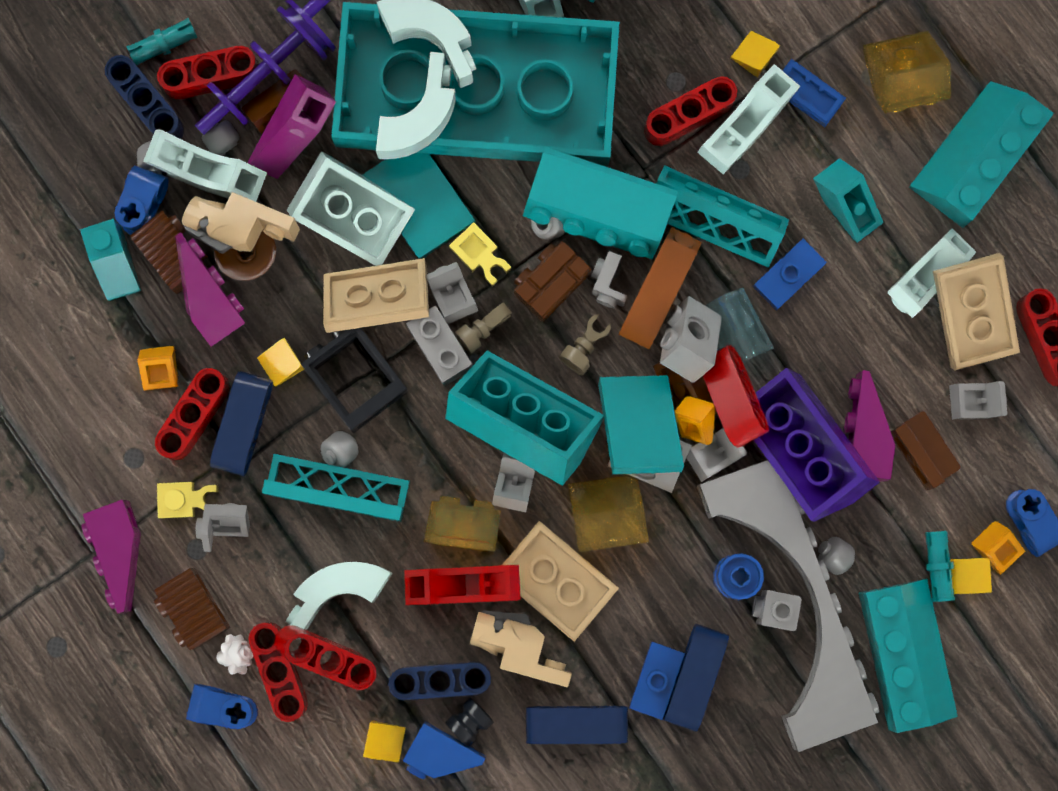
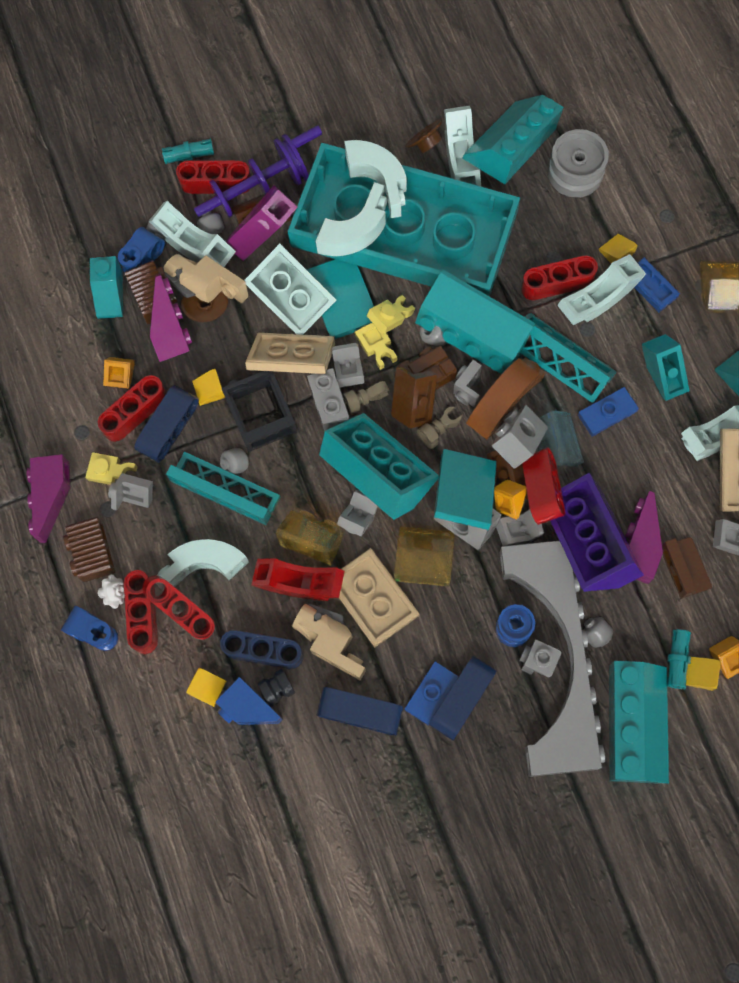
camera: 25 degrees right, 10 degrees down
(134, 88) = (160, 176): dark blue beam -> none
(488, 212) = (388, 315): none -> light yellow plate
(546, 318) = (413, 397): none -> reddish brown panel

